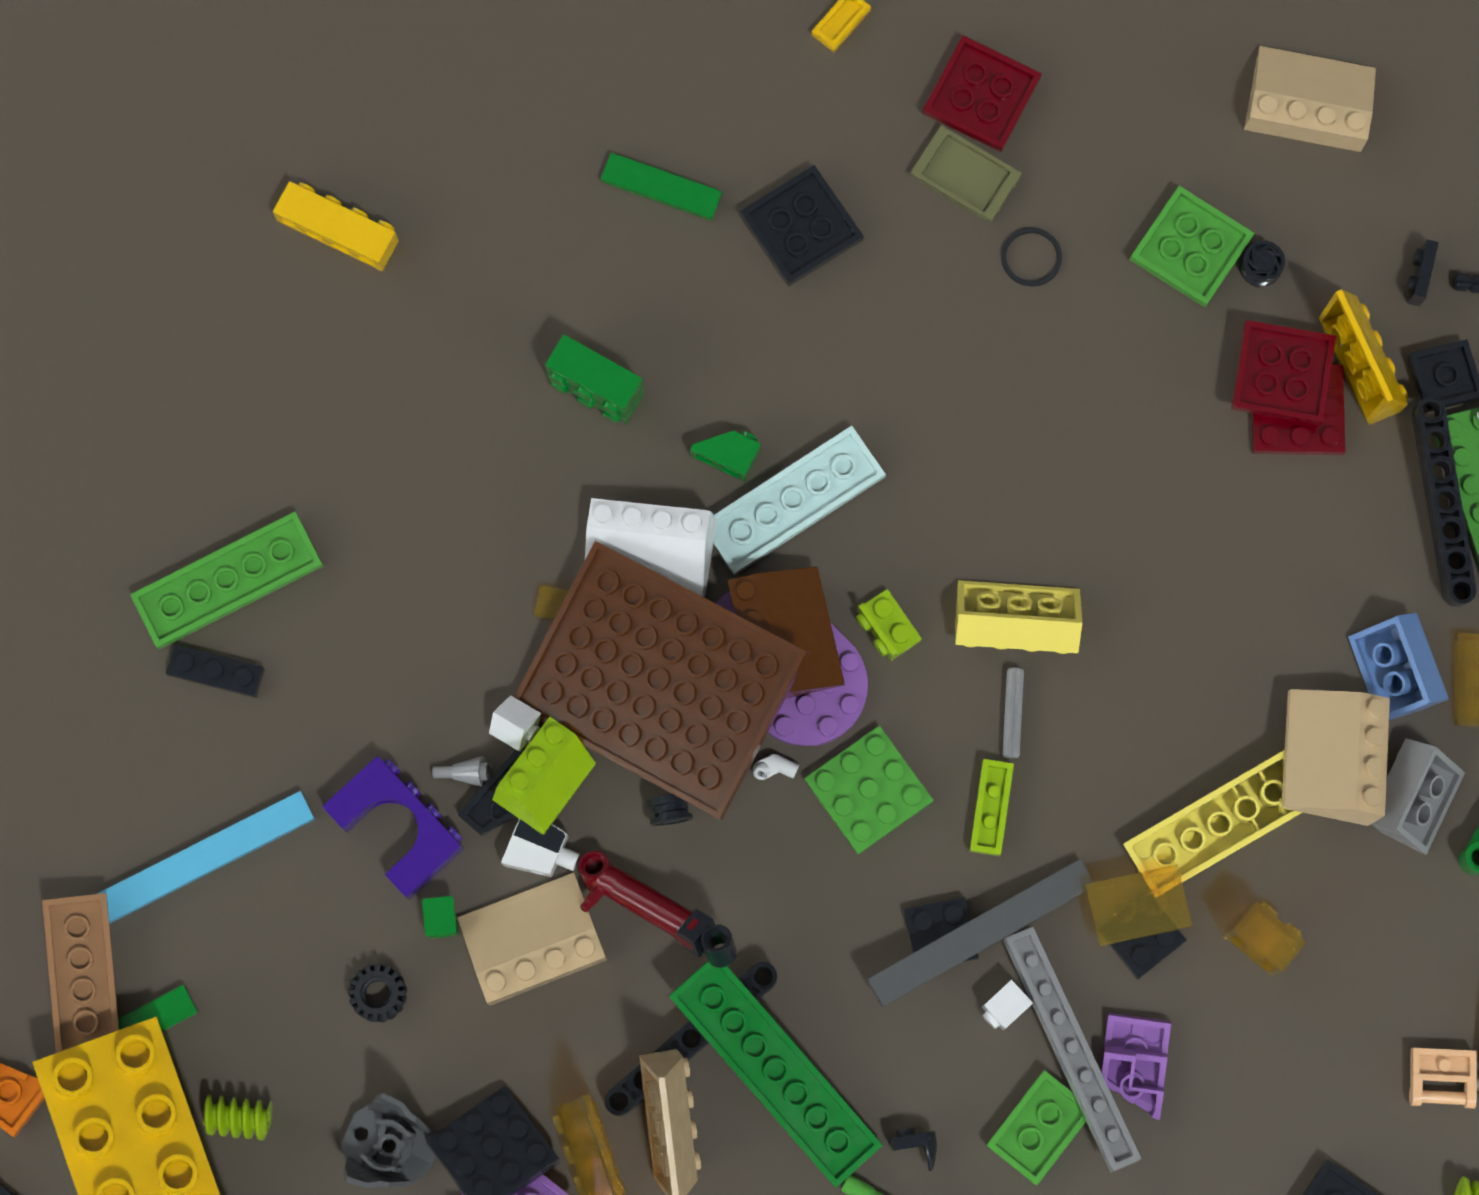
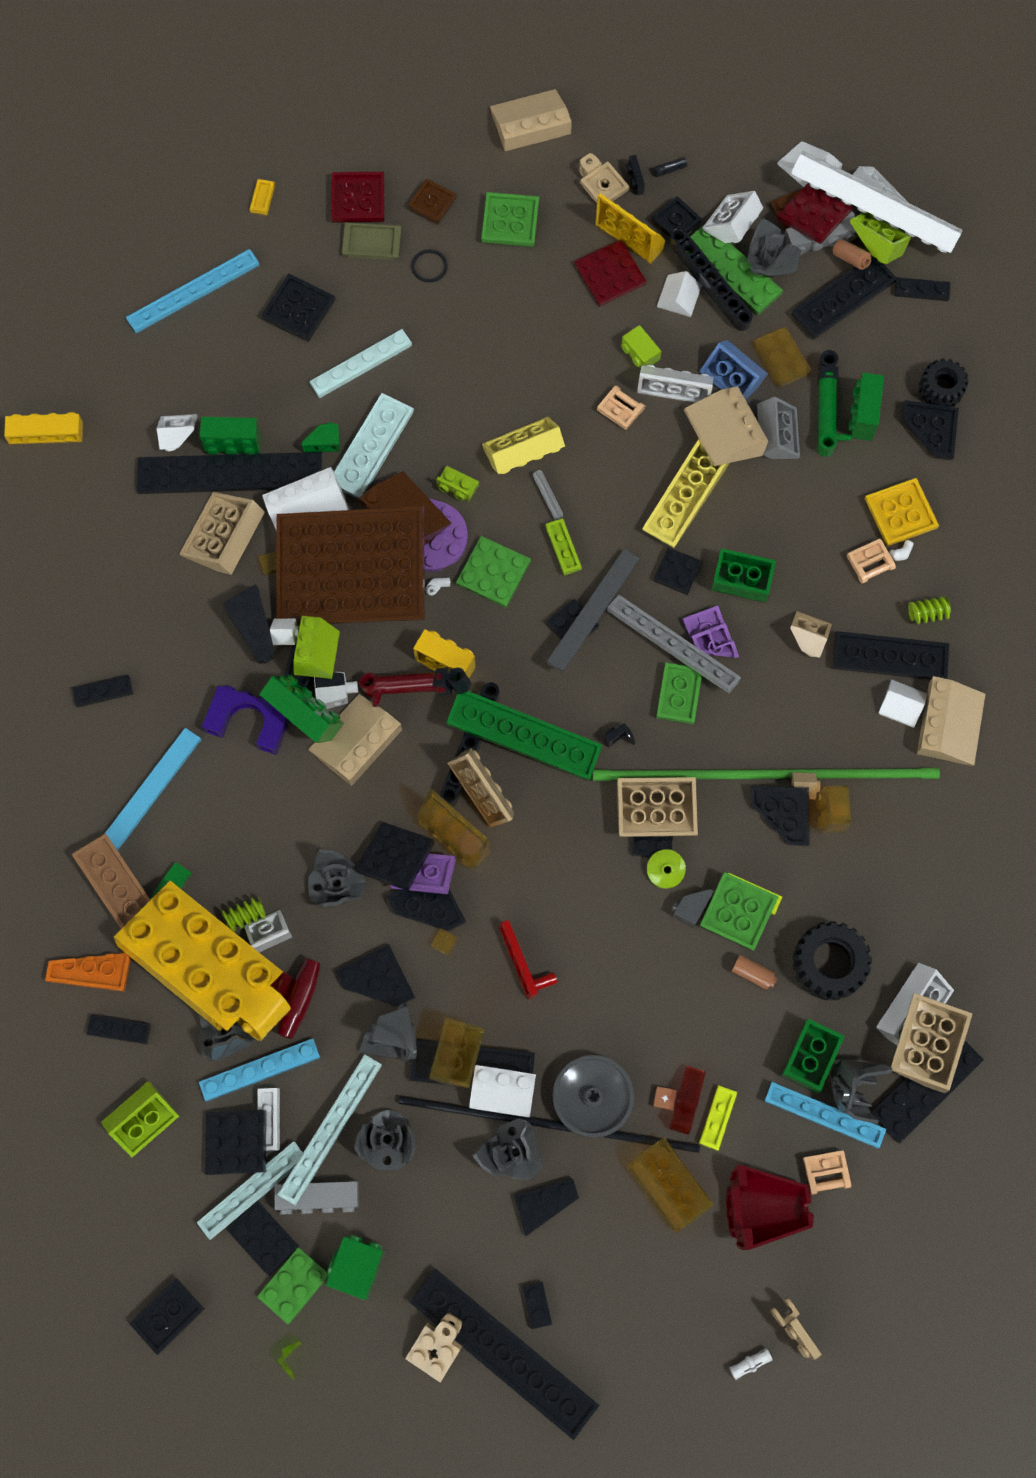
camera: 30 degrees left, 5 degrees down
(226, 580) = (83, 640): bright green plate -> none
(257, 1160) = (268, 931): none -> white slope
(391, 1006) = (282, 799): black tyre -> none
(440, 917) = (299, 752): green panel -> none
(471, 771) = (275, 668): light grey cone -> none
(474, 682) = (250, 621): none -> black slope
(474, 861) = (302, 708): none -> green piece
(507, 520) = (222, 532): none -> tan slope
(522, 326) = (174, 430): none -> white slope
(564, 430) = (224, 472): none -> black plate
(661, 118) = (192, 291): none -> medium azure tile
(661, 186) = (211, 324): green tile -> none
(668, 810) = (393, 633): black wheel -> none
(724, 887) = (440, 653): none -> yellow brick
(847, 360) = (360, 363): none -> light aqua plate
(1006, 1006) = (627, 641): white brick -> none
(1090, 157) = (432, 201): none -> reddish brown plate
(1138, 905) = (667, 554): clear yellow tile -> none
(1188, 638) = (617, 411): none -> light nougat plate
(1235, 999) = (743, 575): none -> green brick
(1262, 264) = (551, 211): black wheel -> none
(1265, 938) = (742, 535): clear yellow brick -> none
(1277, 556) = (640, 347): none -> lime brick
(1283, 372) = (592, 255): dark red plate -> none
(1287, 1142) = (810, 633): none -> tan slope
(1299, 641) = (674, 384): none -> white slope
(1361, 241) = (595, 174): none -> tan plate
(1385, 498) = (679, 293): none -> white slope

